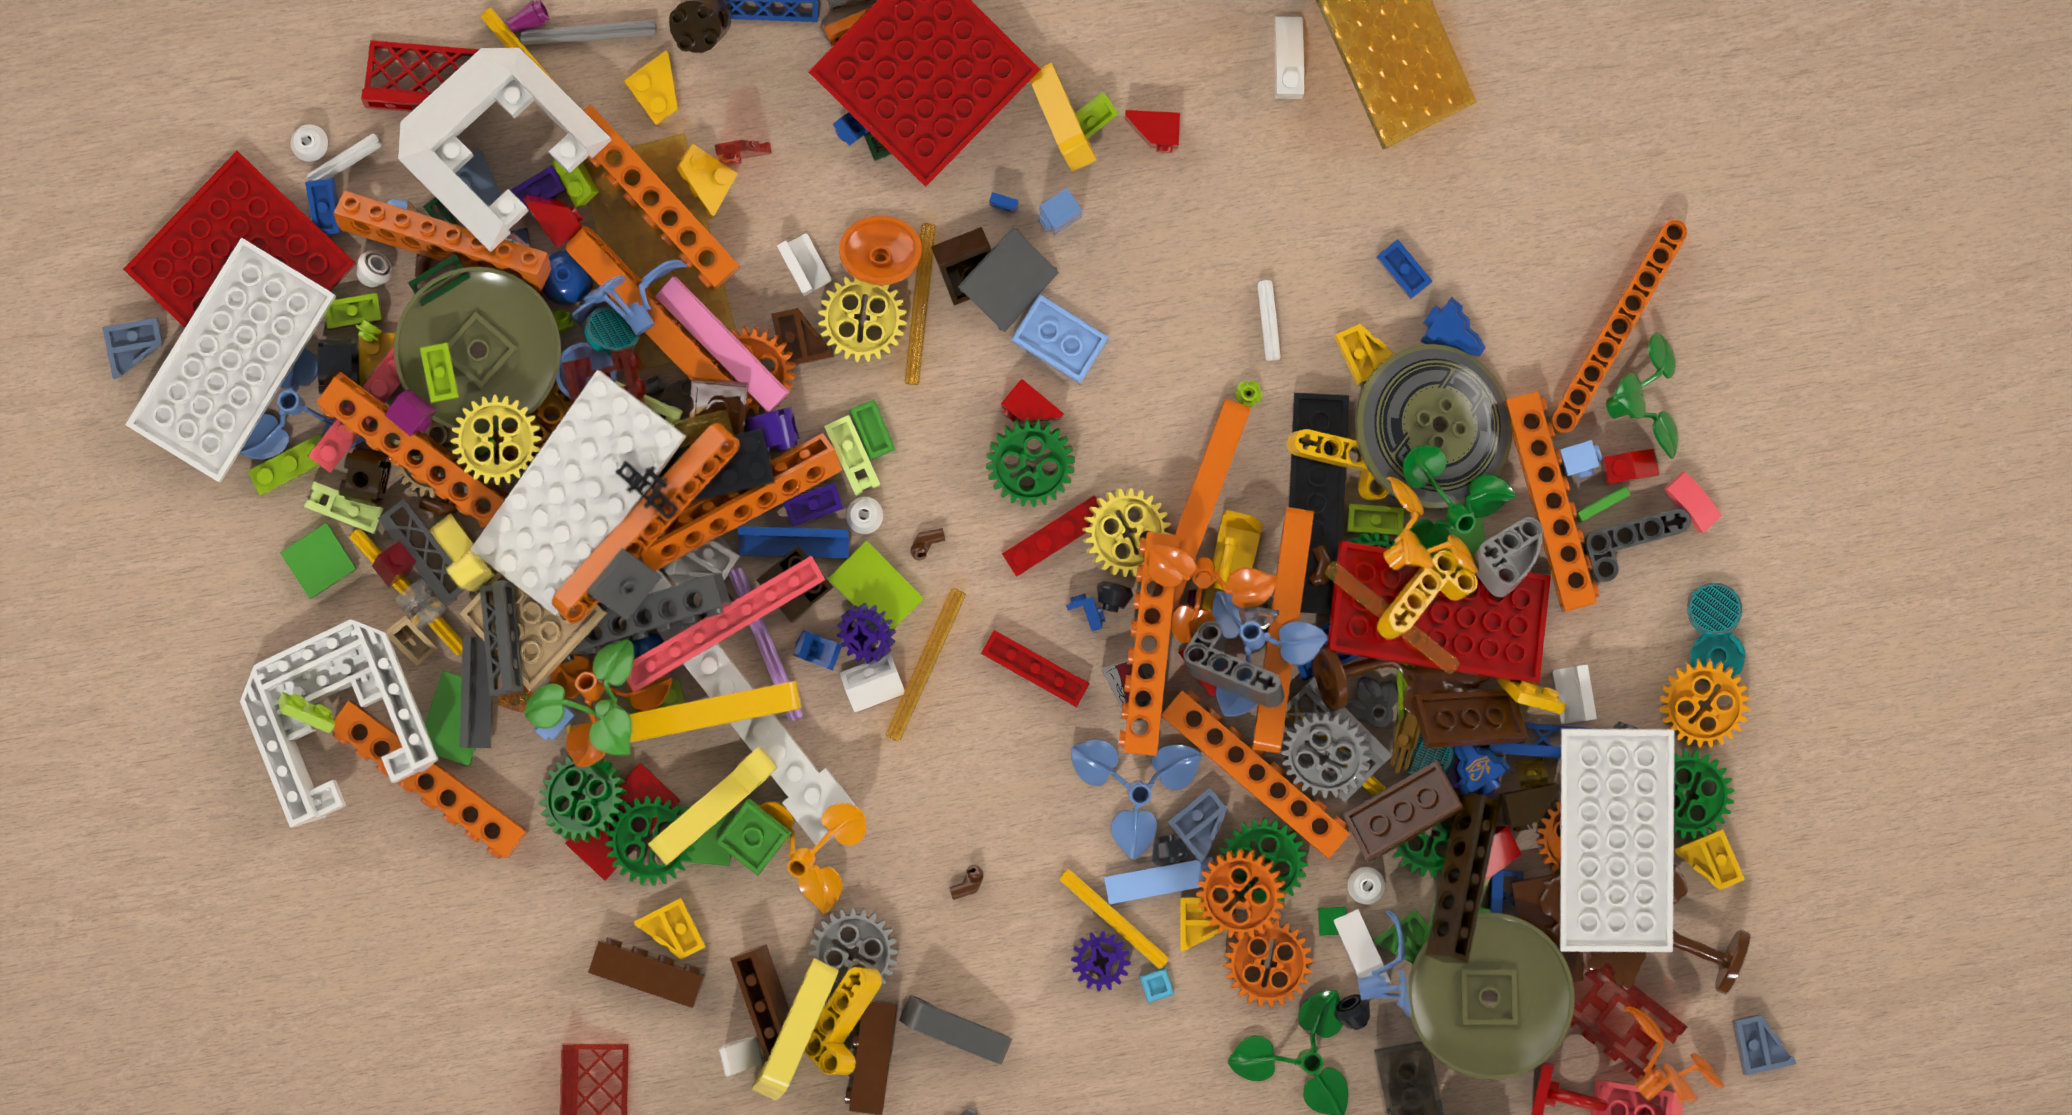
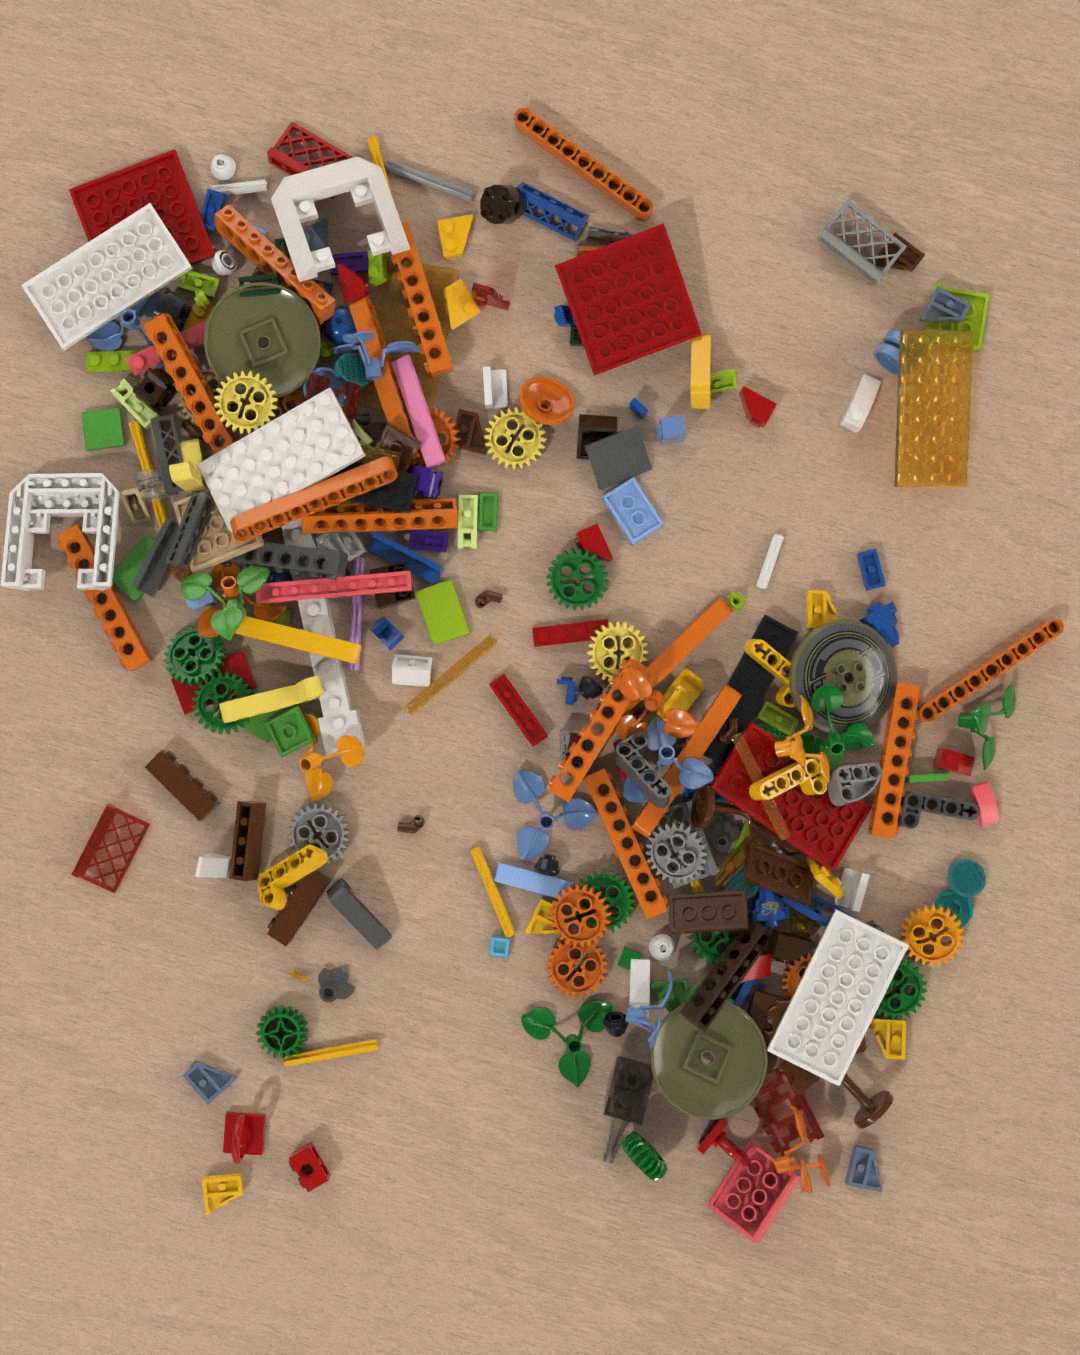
camera: 25 degrees right, 0 degrees up
(131, 343) = (52, 238): sand blue wing -> none
(299, 709) = (42, 514): lime plate -> none
(393, 563) = (146, 452): dark red brick -> none
(410, 413) = (200, 359): magenta brick -> none
(439, 372) = (230, 342): lime plate -> none
(529, 17) = (397, 153): magenta cone -> none
(624, 584) = (281, 530): dark grey plate -> none
(656, 490) = (321, 467): black piece -> none
(673, 929) = (212, 765): yellow wing -> none
(796, 1031) = (256, 867): light yellow beam -> none
(866, 633) = (420, 638): dark purple gear -> none
(873, 517) = (462, 566): white cone -> none
(920, 304) = (555, 448): clear yellow axle -> none
(1088, 965) = (462, 914): dark purple gear -> none
(1200, 823) = (575, 857): sand blue wing -> none
(1262, 616) = (678, 745): clear slope -> none
(1580, 459) = (926, 742): light blue brick -> none

